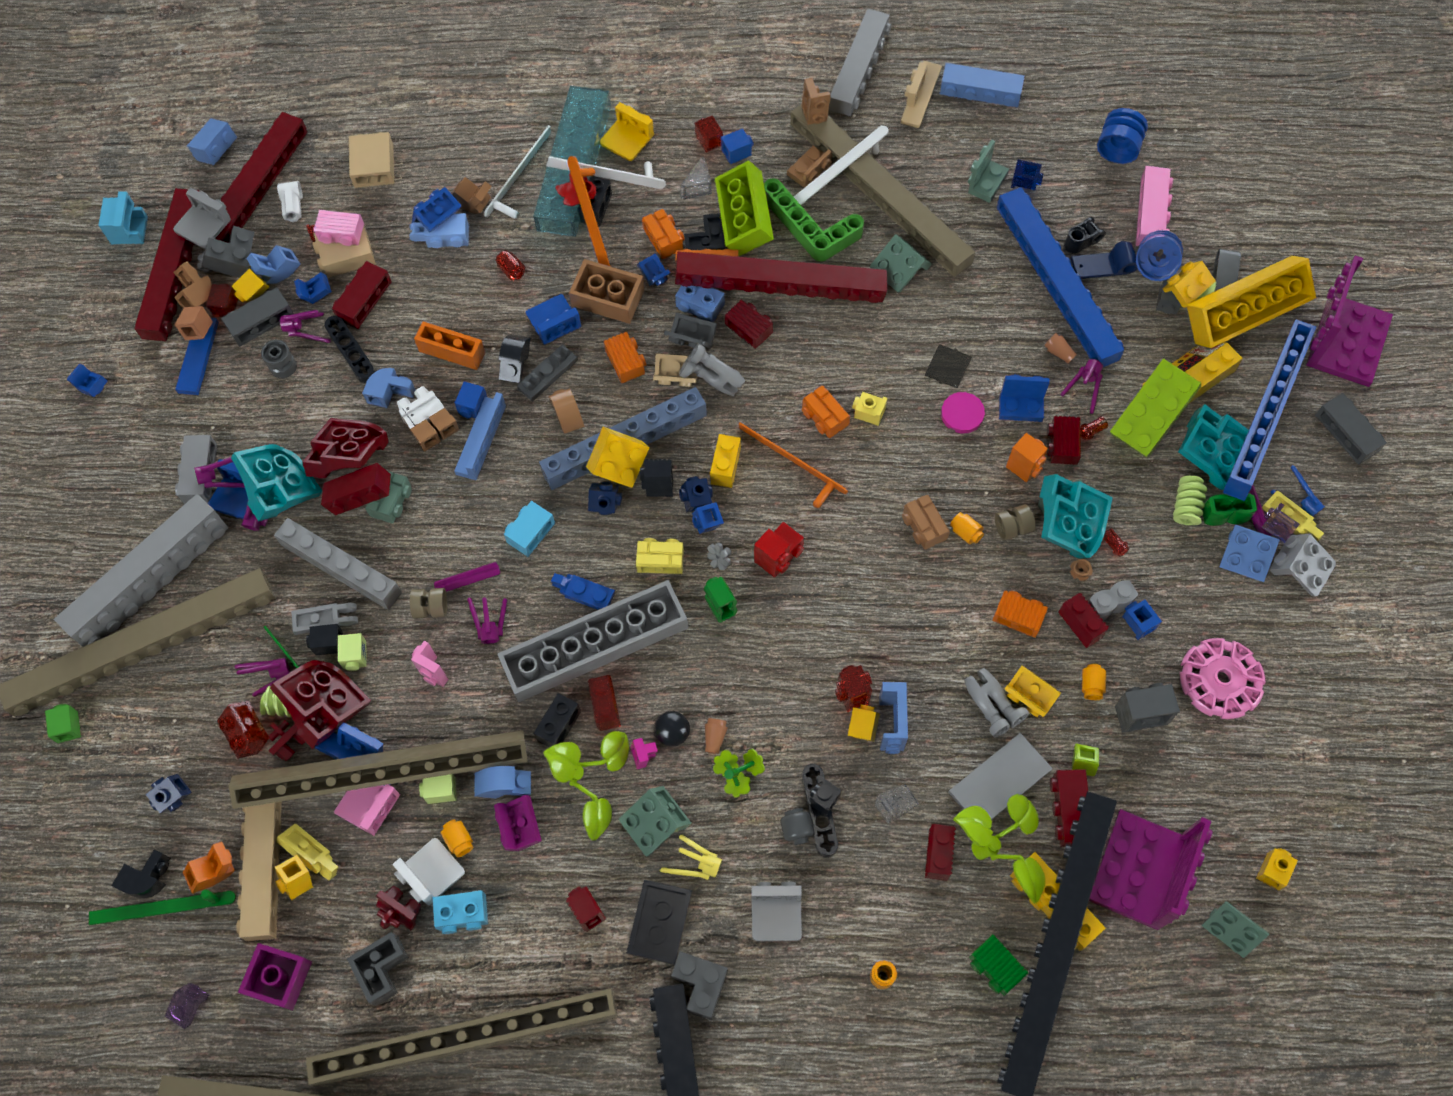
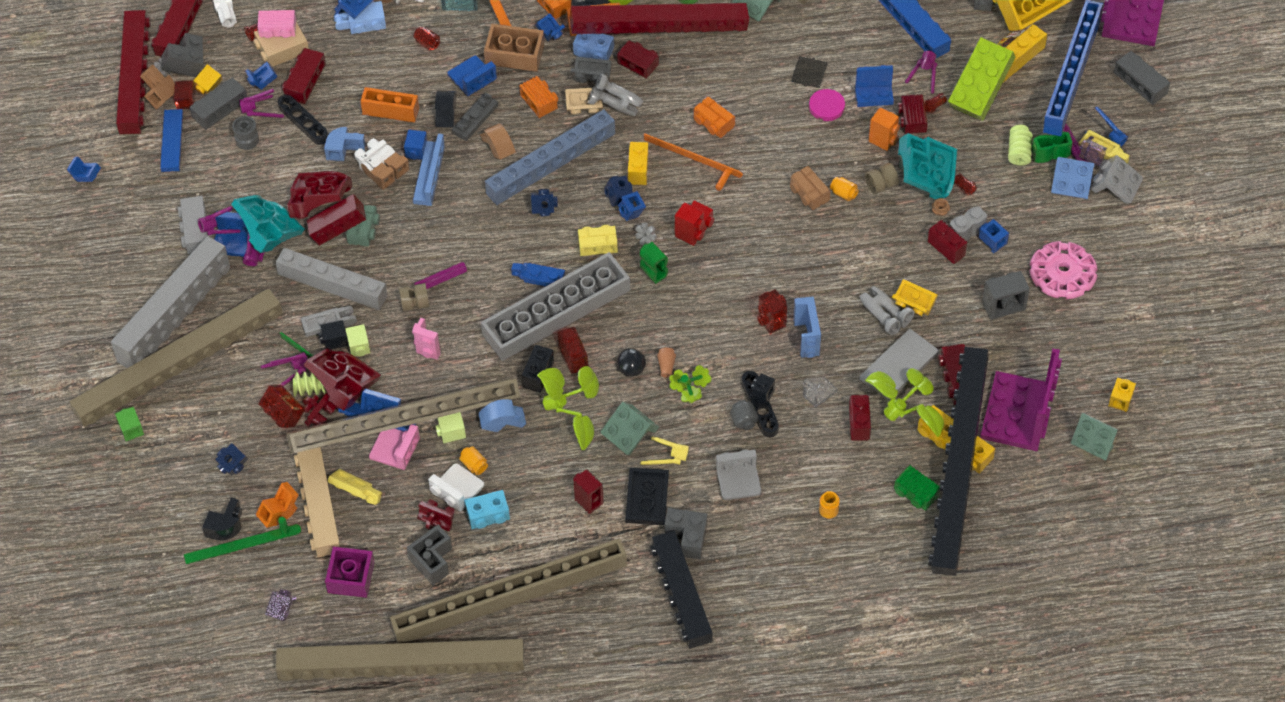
camera: 10 degrees left, 10 degrees down
(122, 221) = (83, 42): medium azure plate -> none
(193, 323) = (167, 112): nougat brick -> none
(203, 219) = (158, 29): light grey bracket -> none
(276, 266) = (226, 61): medium blue brick -> none
(293, 877) = (348, 502): yellow brick -> none
(489, 632) = (468, 313): magenta plant -> none
(517, 824) = (521, 444): magenta bracket -> none
(529, 528) = (485, 233): medium azure brick -> none
(617, 457) = (550, 168): yellow brick -> none
(642, 752) = (610, 381): dark pink tile -> none
(657, 478) = (585, 181): black brick -> none
(864, 723) = (784, 336): yellow brick -> none
(869, 408) = (749, 110): light yellow brick -> none
(1020, 613) = (896, 244): orange brick -> none
(1059, 347) = (899, 46): nougat cone -> none
(1086, 758) = (964, 338): lime slope -> none
(1093, 682) = (962, 285): light orange brick -> none
(1213, 444) = (1030, 100): teal slope -> none

